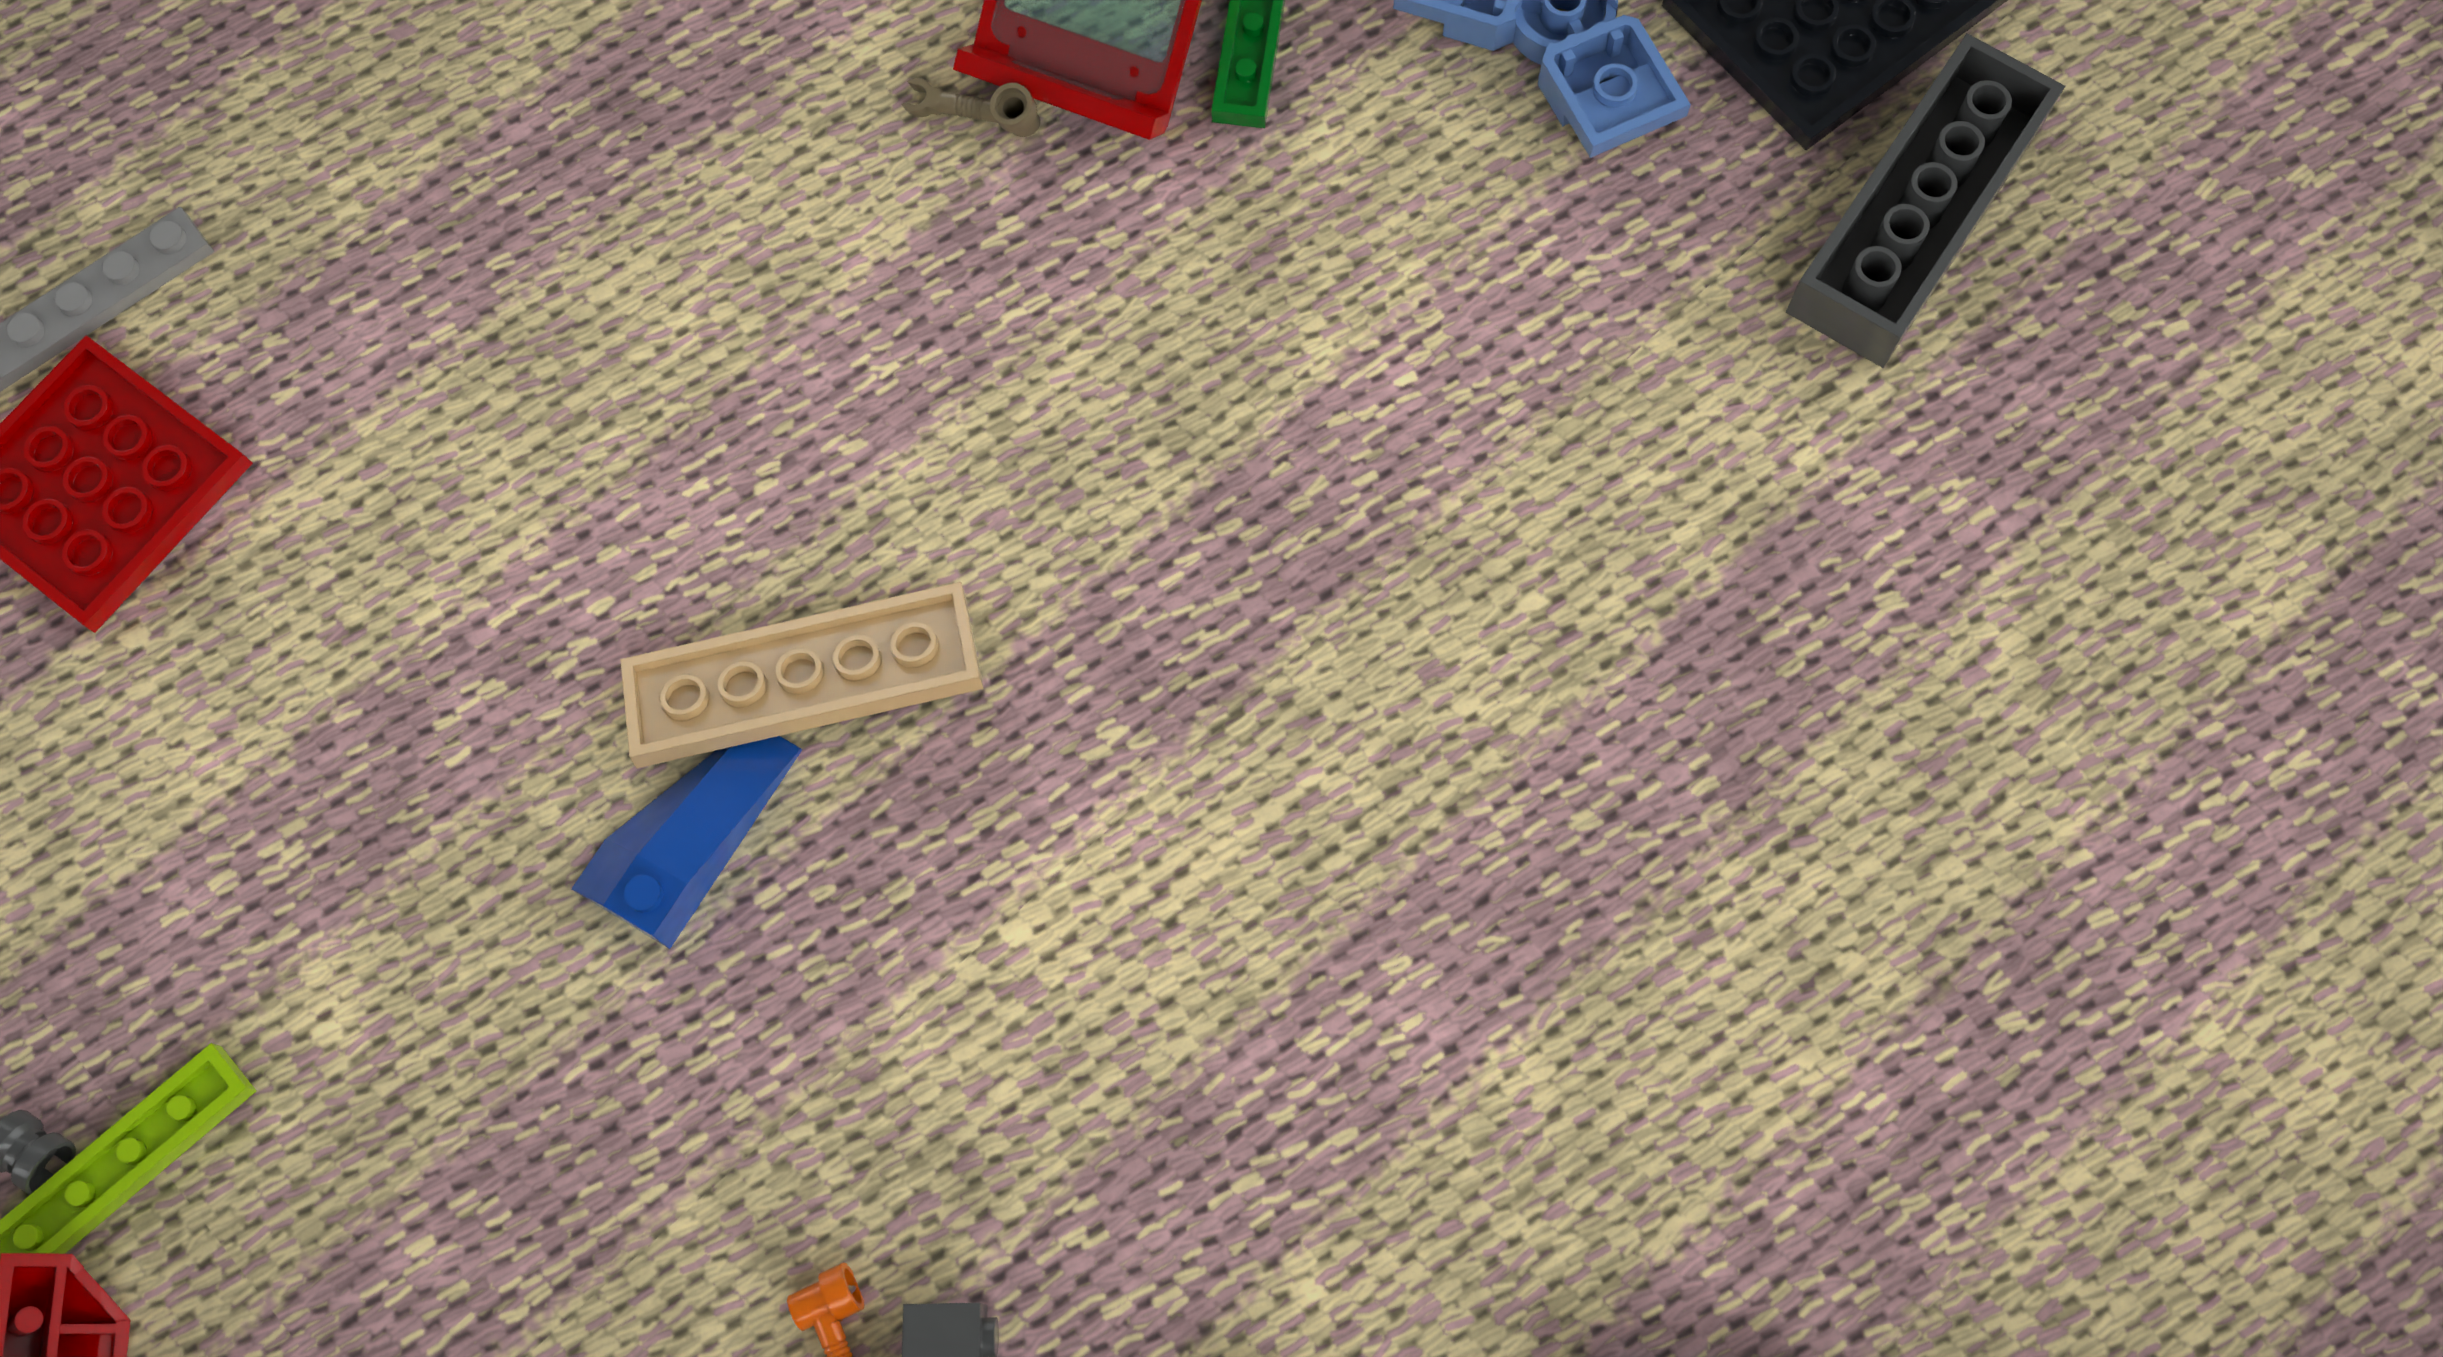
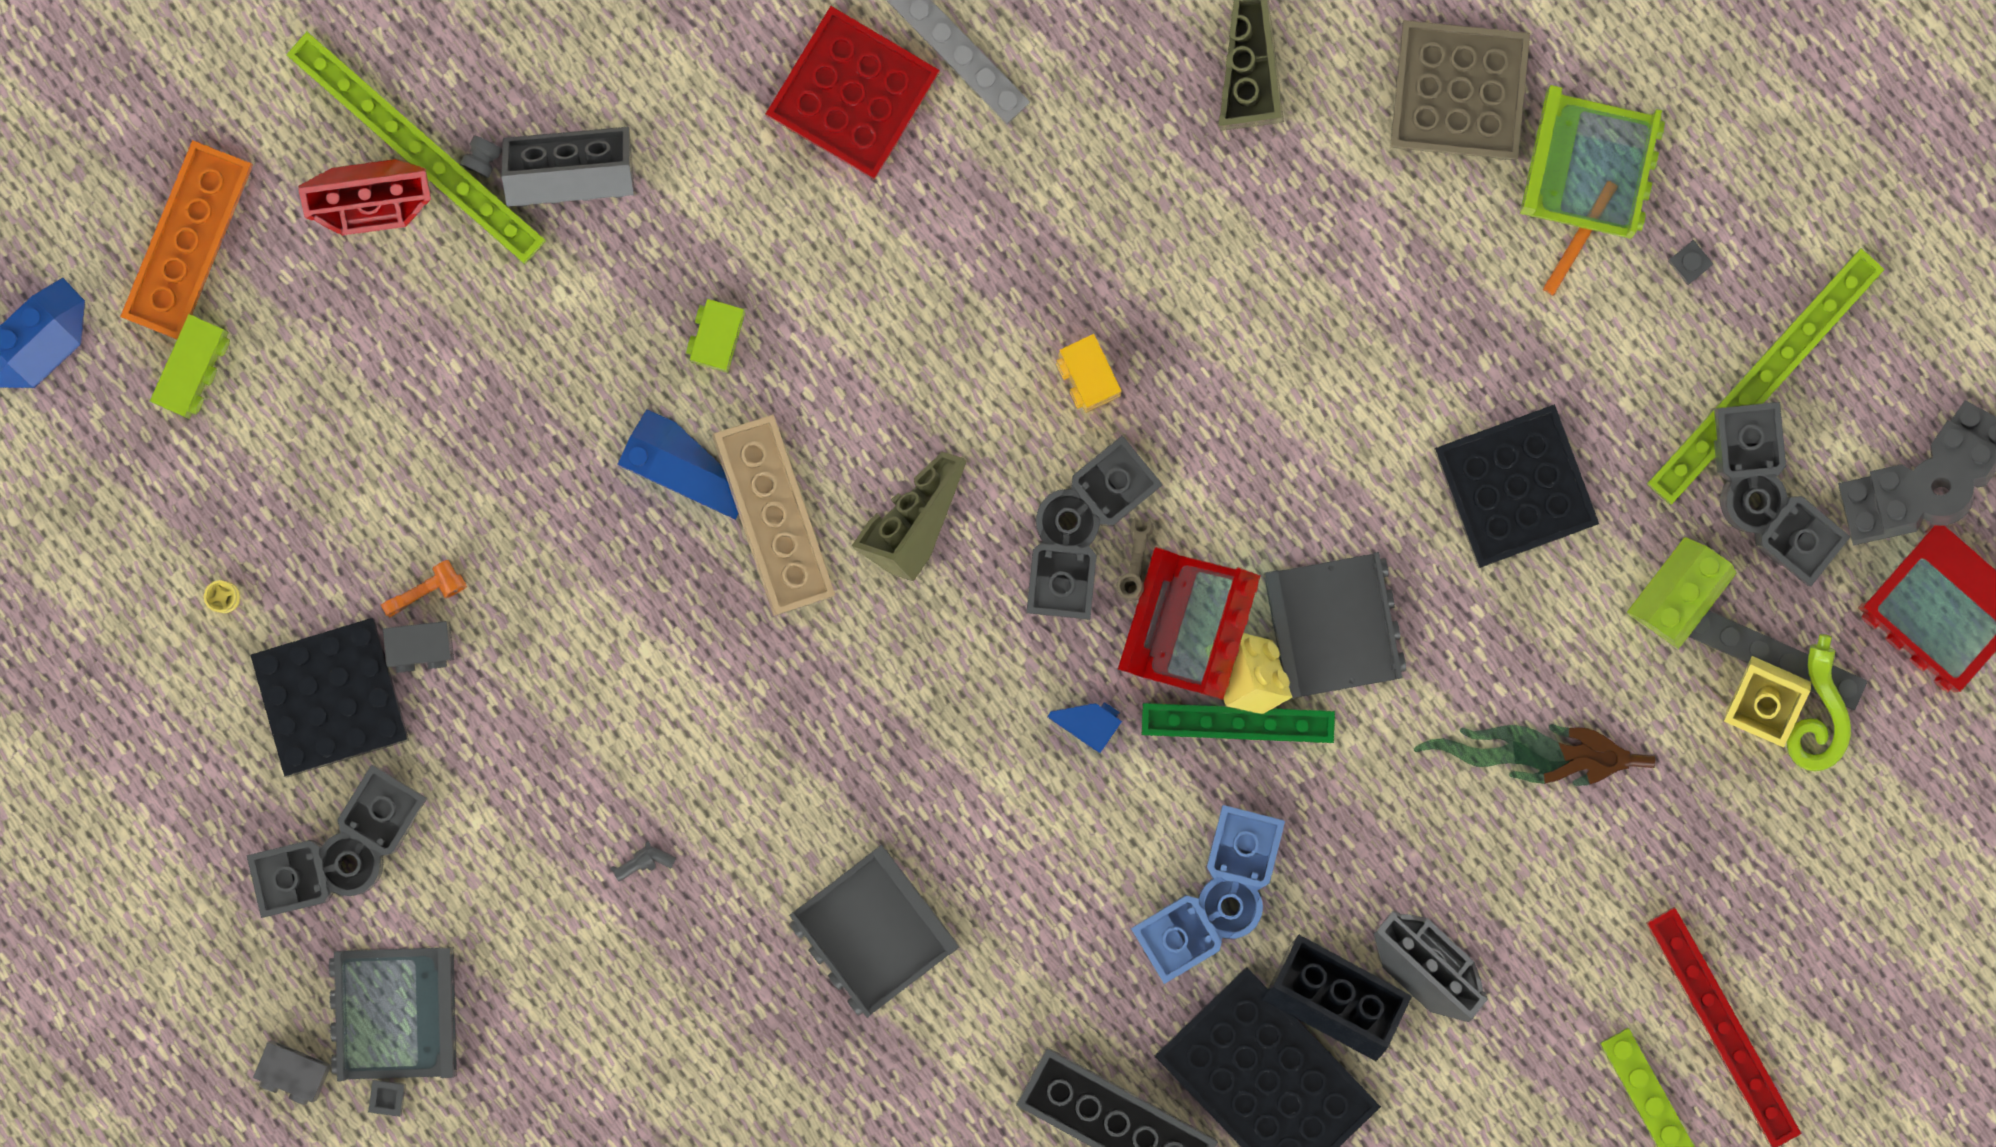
camera: 80 degrees right, 15 degrees up
(92, 988) = (567, 166): none -> dark grey slope
(458, 744) = (716, 335): none -> lime brick
(643, 134) = (1088, 373): none -> yellow brick
(858, 151) = (1098, 496): none -> dark grey plate
(866, 451) = (909, 532): none -> olive wedge
(1240, 194) = (1089, 723): none -> blue slope
(1409, 970) = (643, 859): none -> dark grey piece
(1568, 571) = (873, 932): none -> dark grey panel

